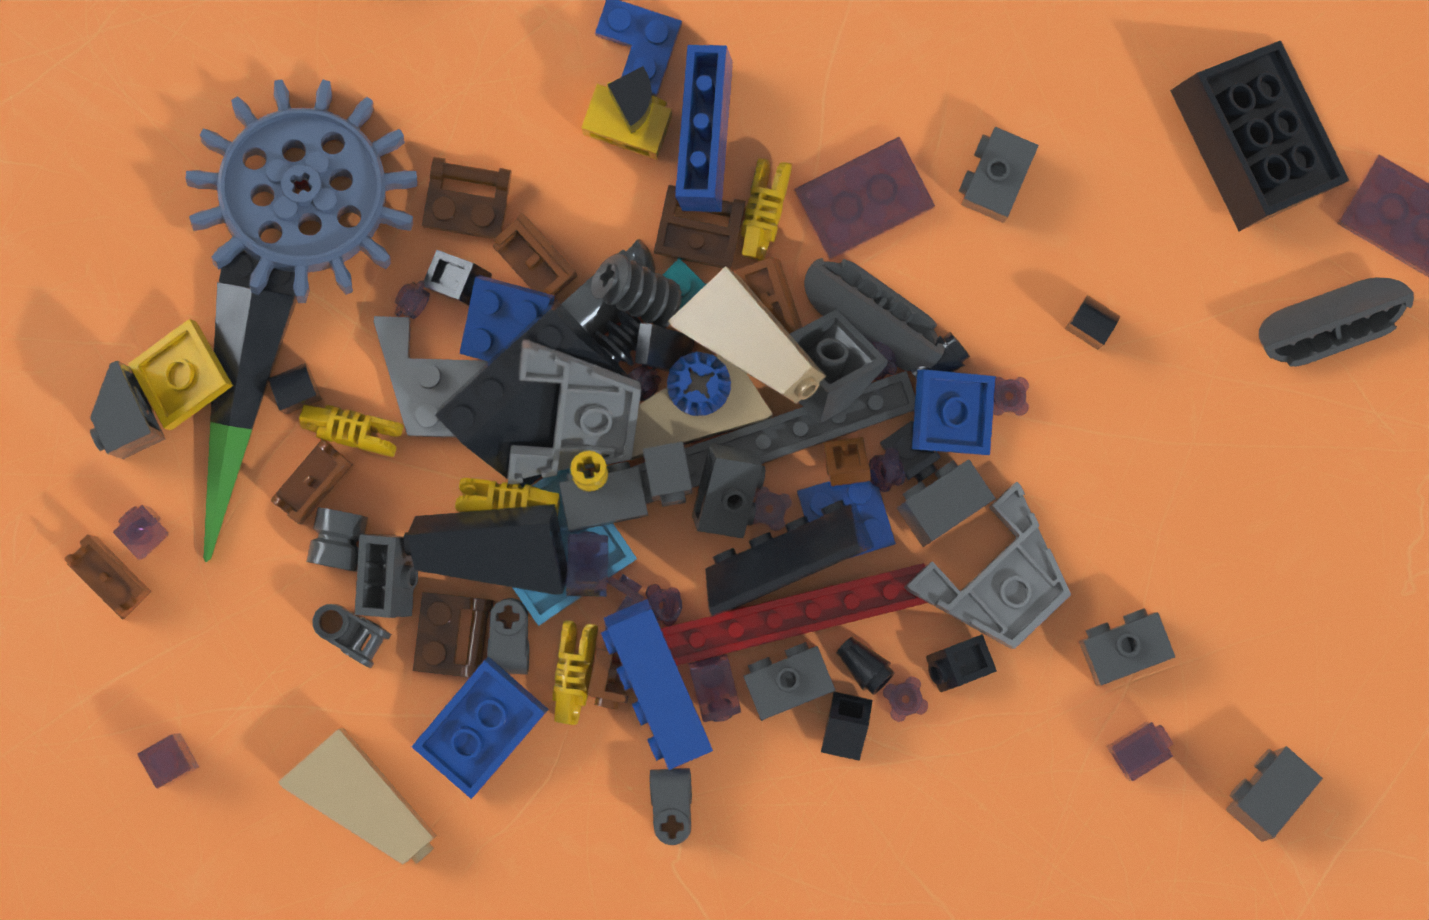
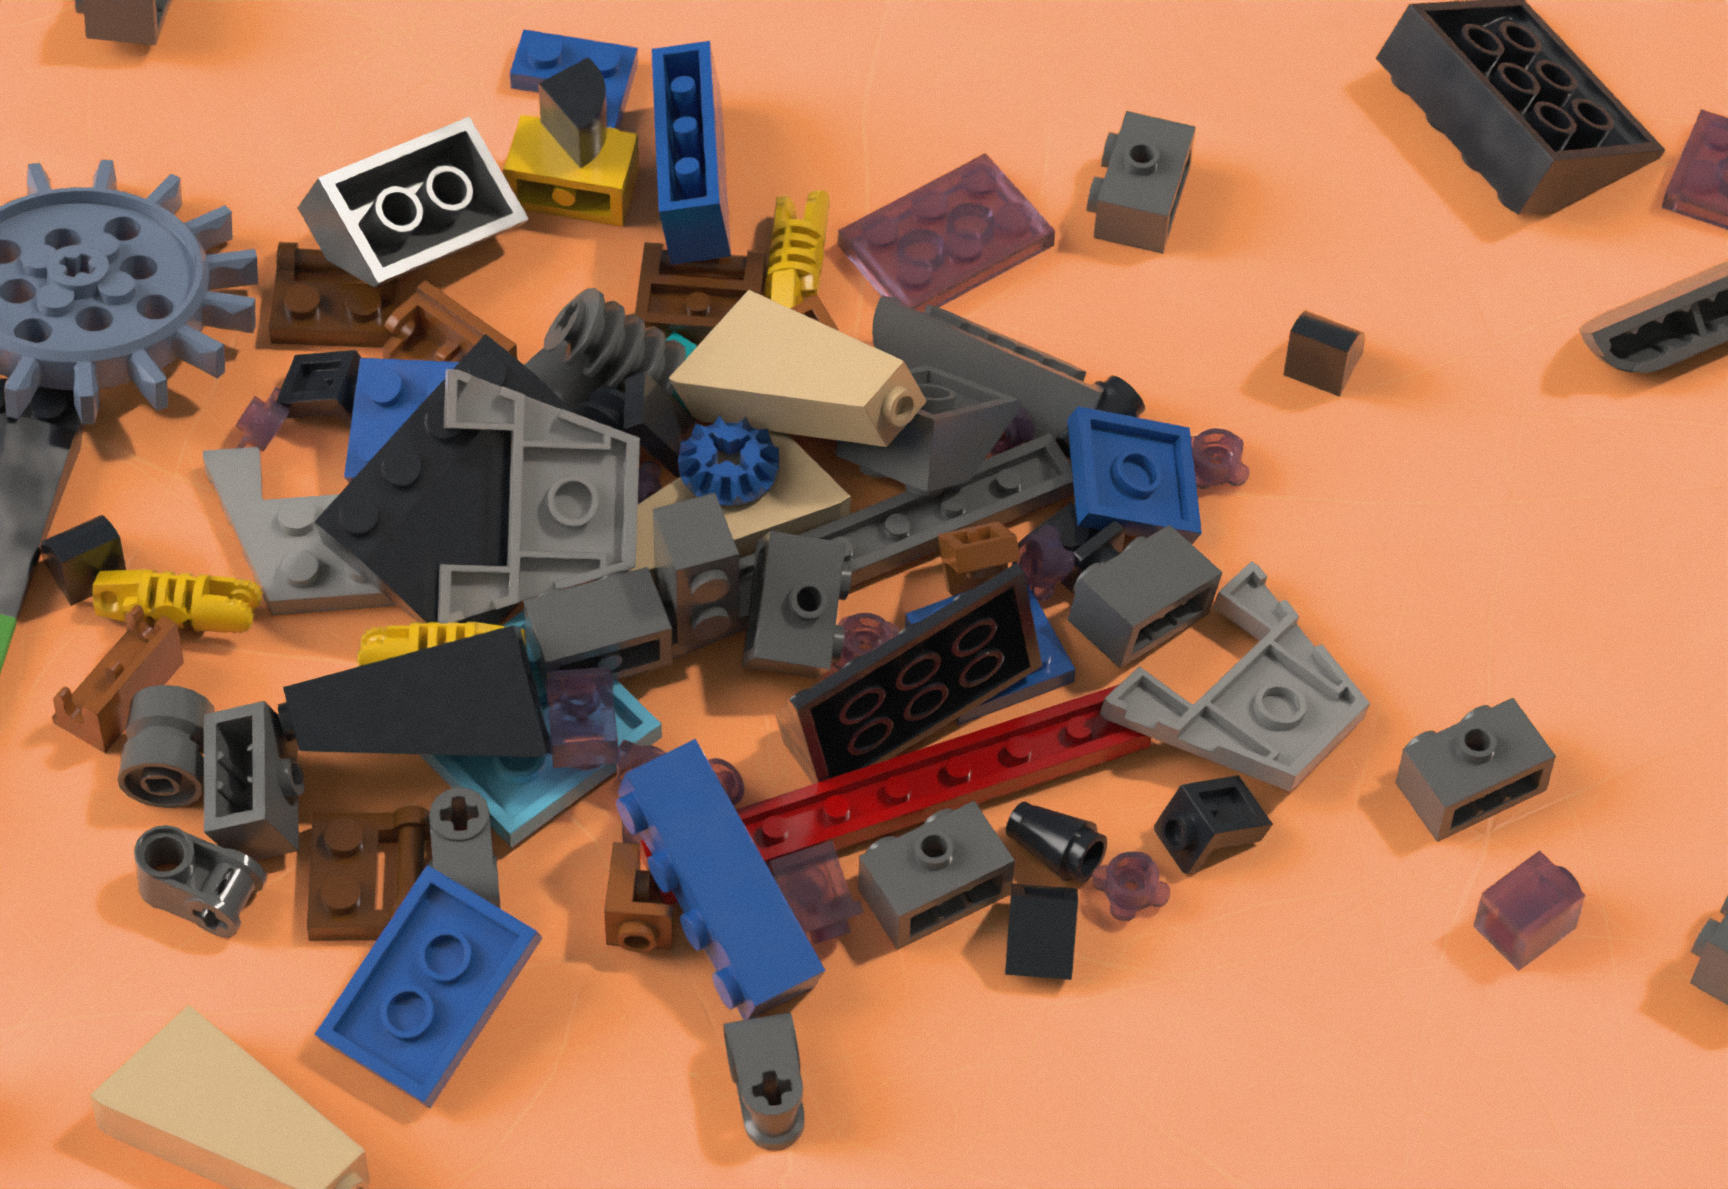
camera: 10 degrees left, 30 degrees down
(520, 153) = (411, 205): none -> dark grey slope
(573, 672) = (576, 901): yellow hinge -> none
(579, 479) = (570, 572): yellow bush -> none

